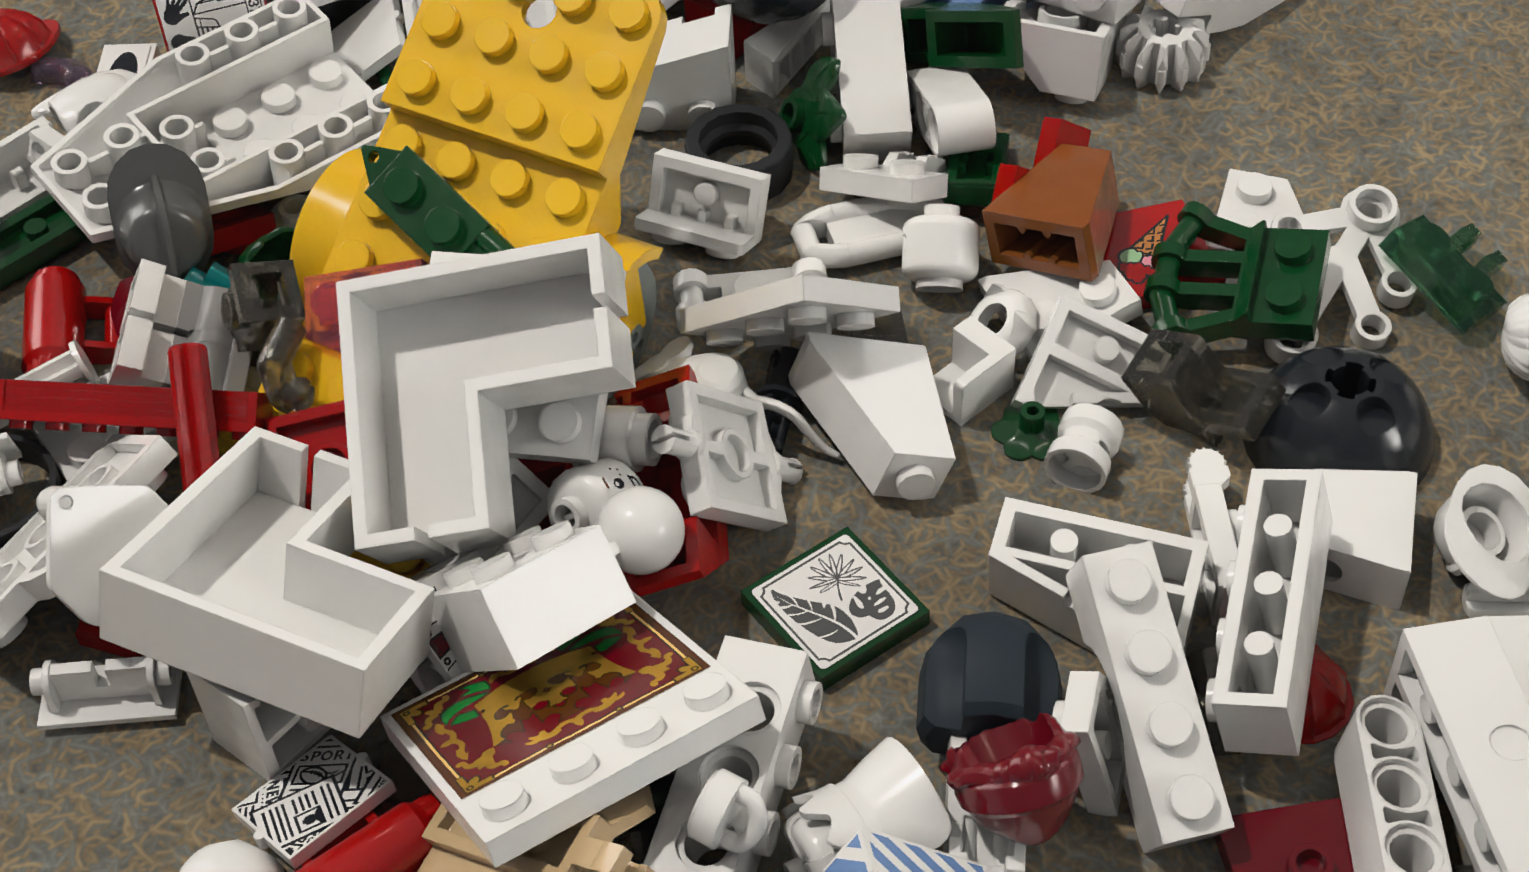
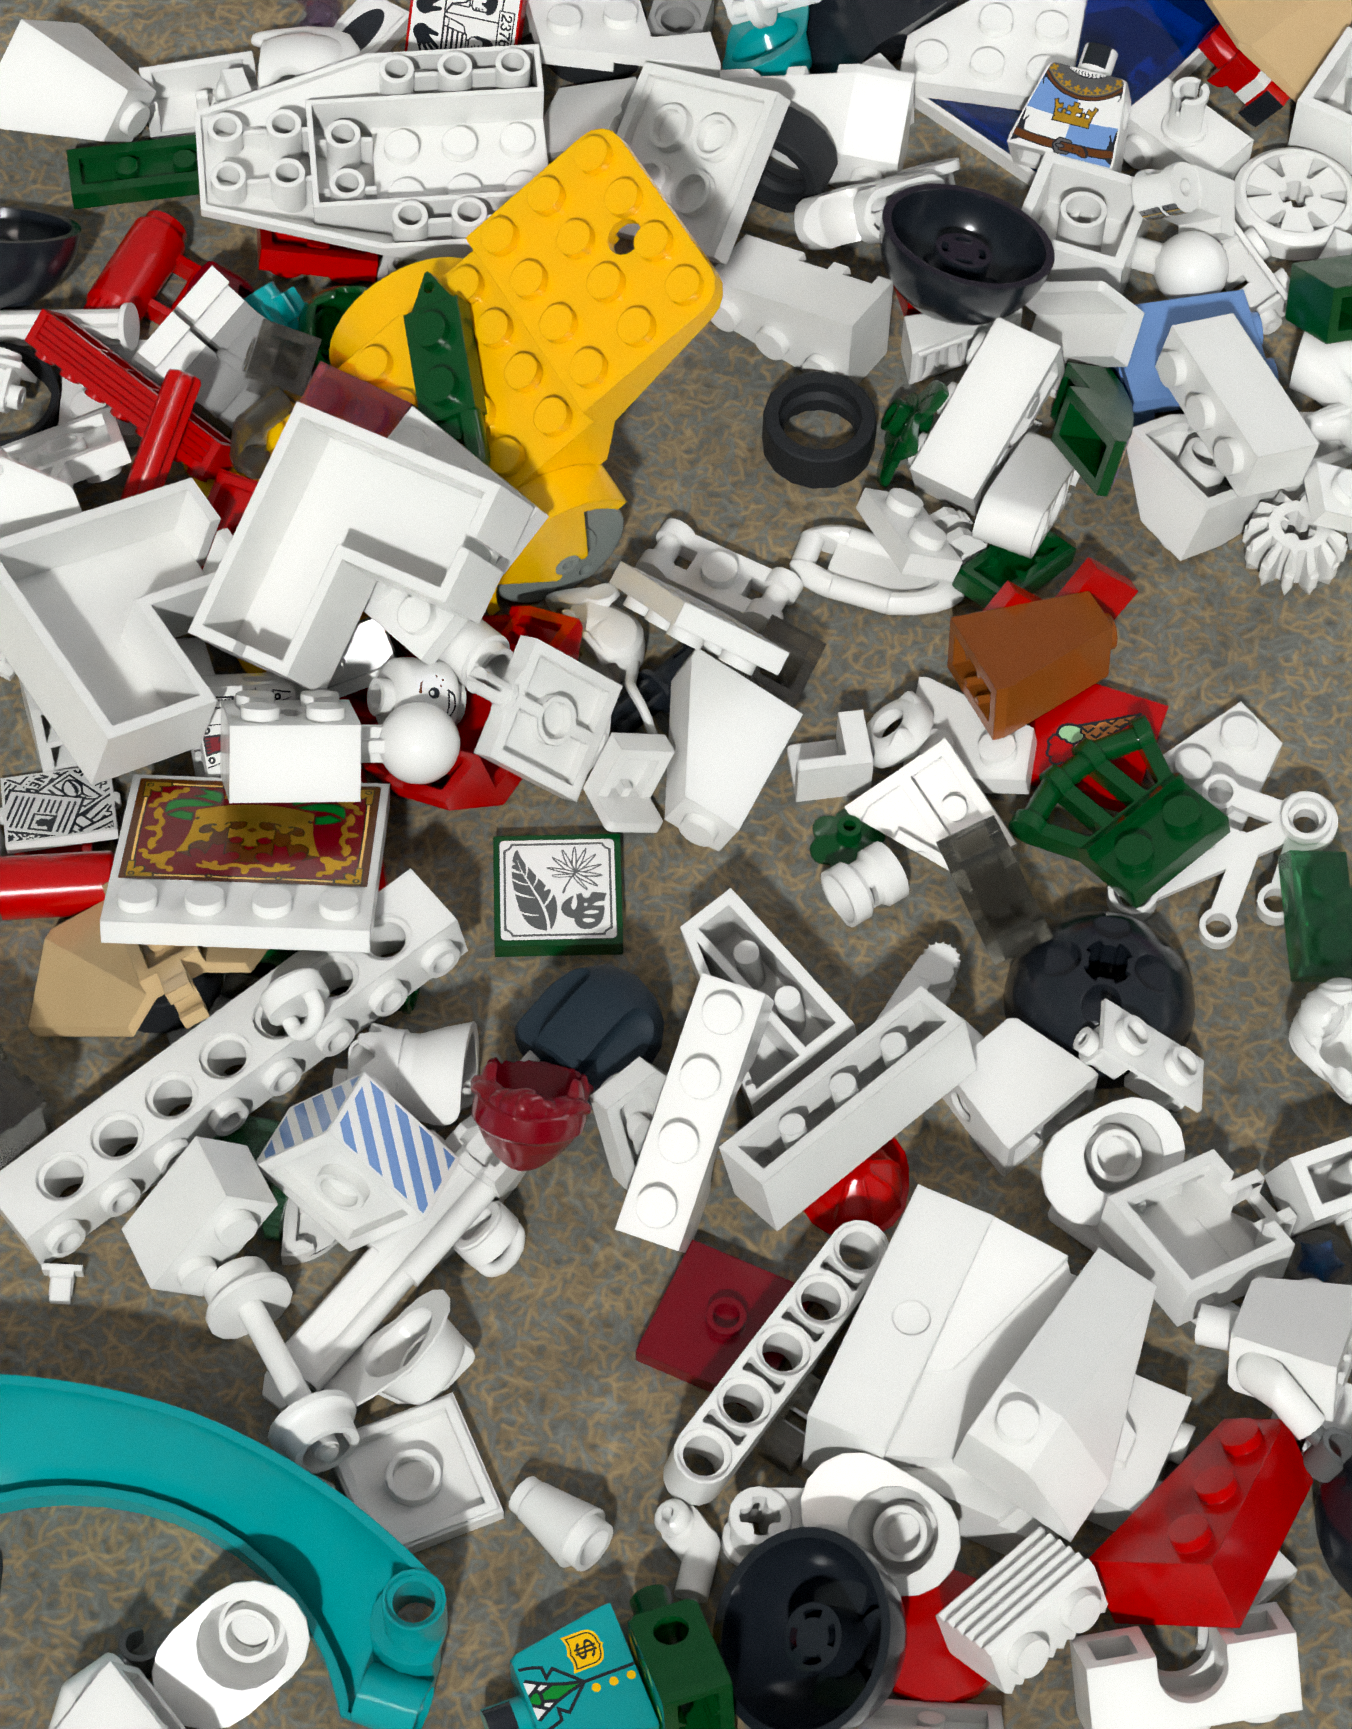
camera: 30 degrees right, 10 degrees up
(160, 209) = (268, 220): dark grey piece -> none
(705, 204) = (740, 466): white bracket -> none
(818, 477) = (626, 779): none -> white bracket
(940, 249) = (902, 630): white head -> none
(1434, 446) = (1157, 1064): none -> white hinge

